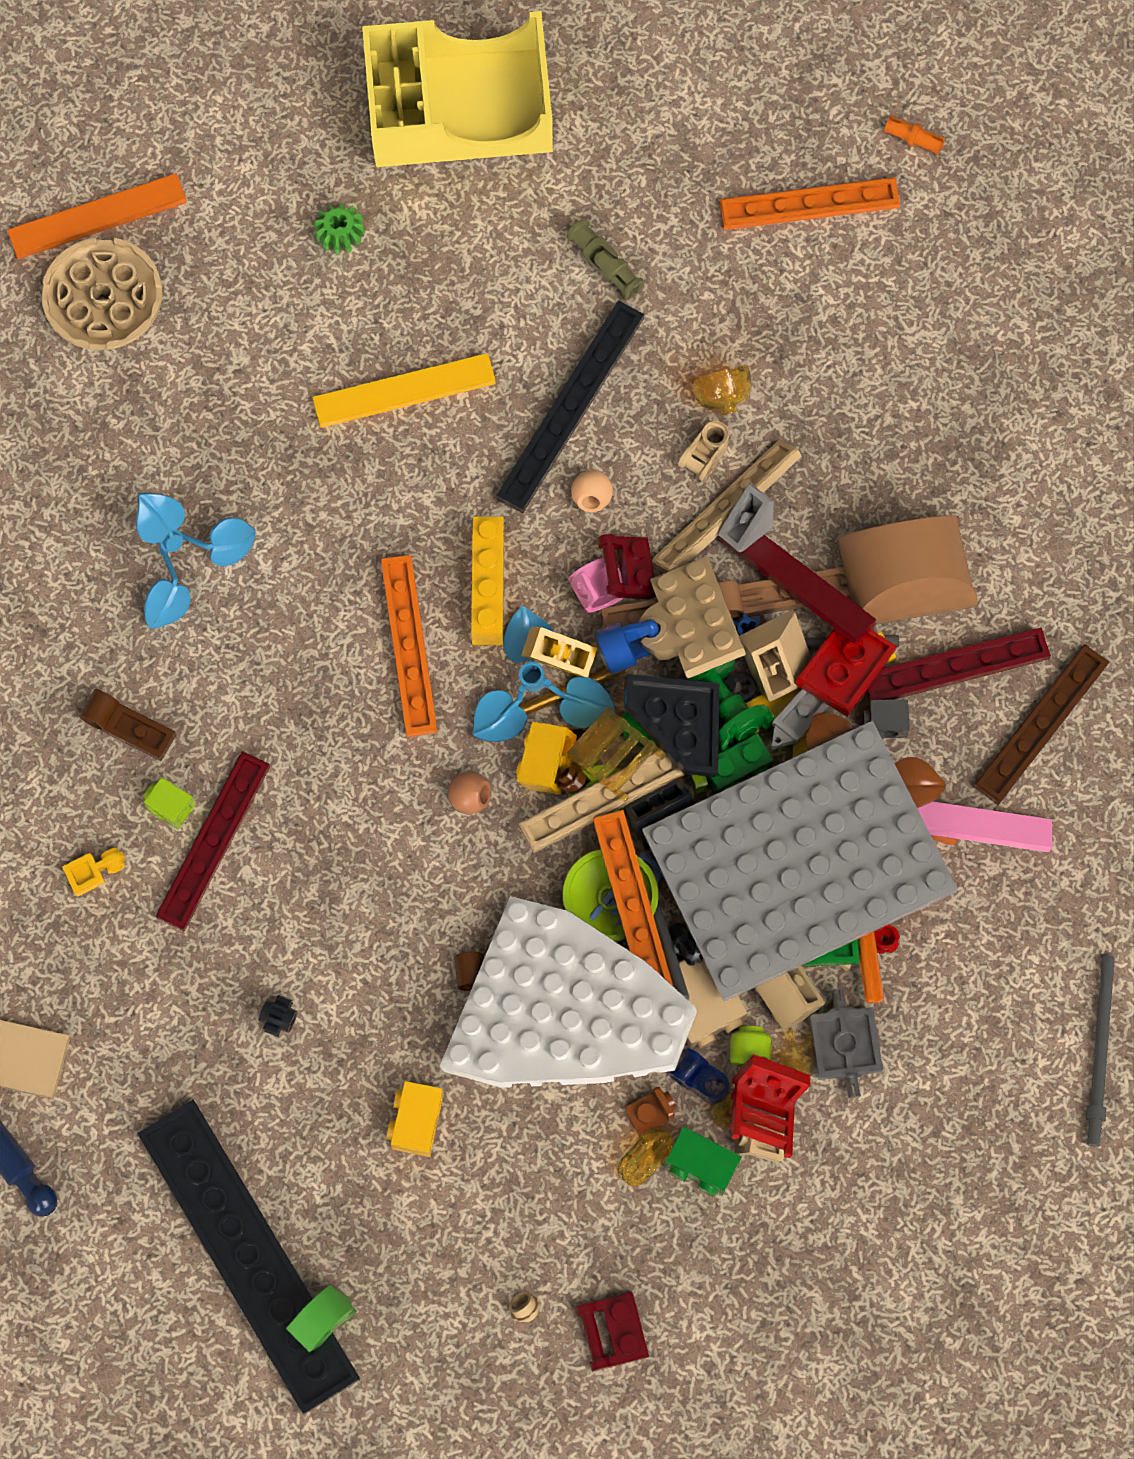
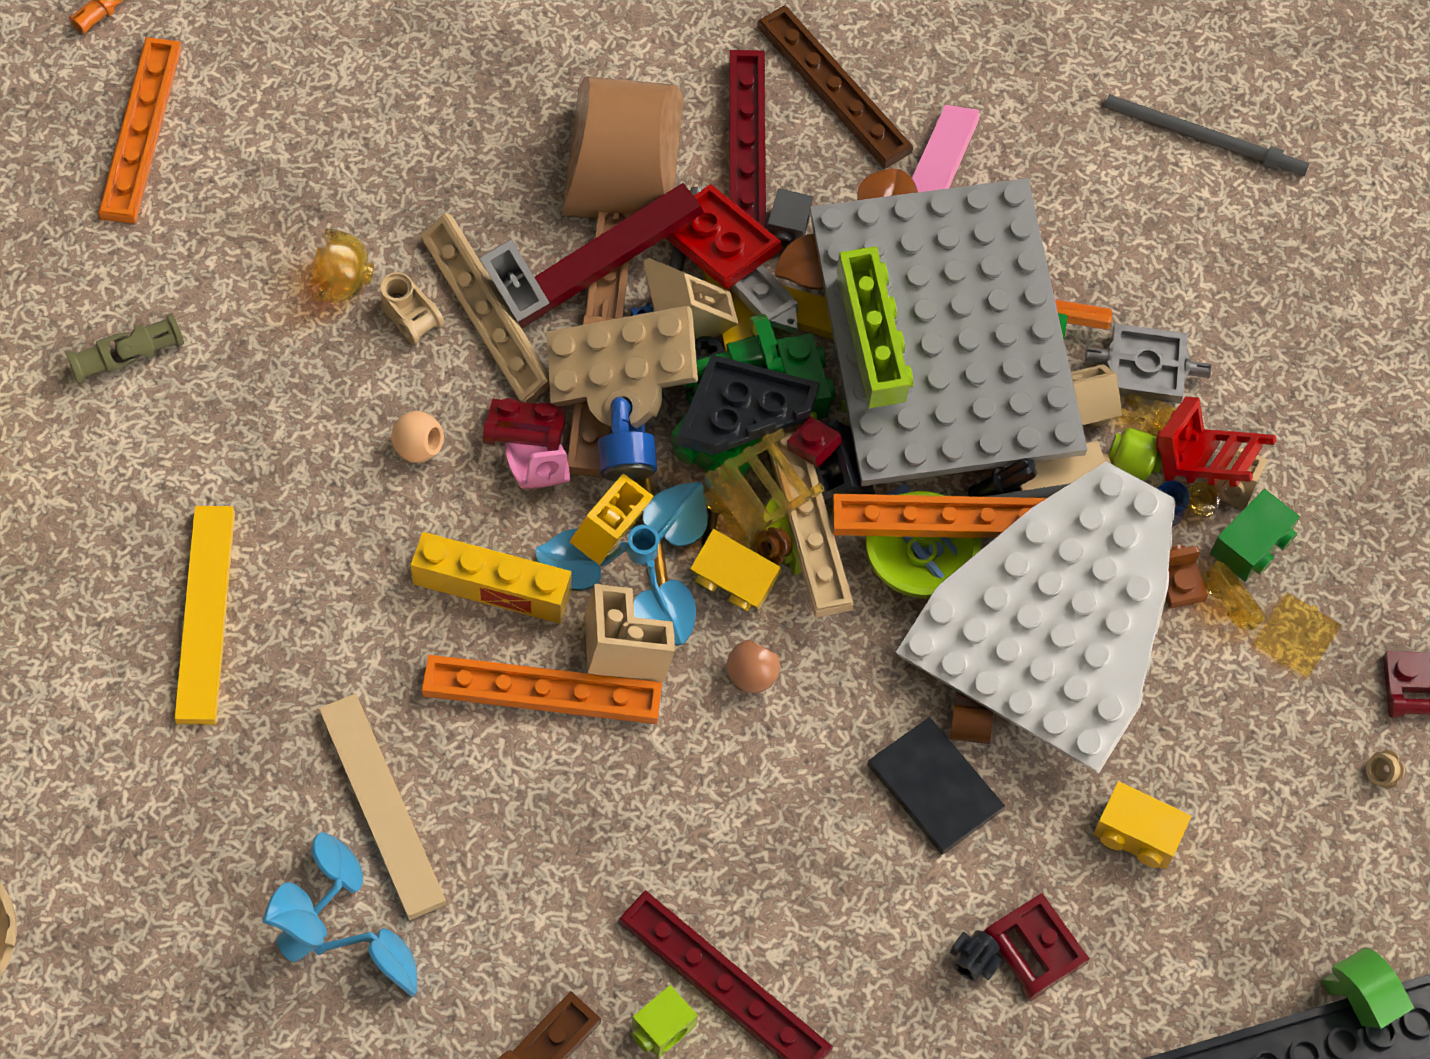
camera: 80 degrees left, 10 degrees down
(286, 560) = (382, 807): none -> tan tile
(307, 1068) = (1046, 939): none -> dark red plate
(414, 957) = (936, 785): none -> black tile
(455, 686) = (622, 643): none -> tan brick
(570, 407) = (300, 436): black plate -> none
(630, 1218) = (1297, 634): none -> clear yellow piece
(664, 783) = (814, 441): none -> dark red plate
(763, 793) = (873, 327): none -> lime brick

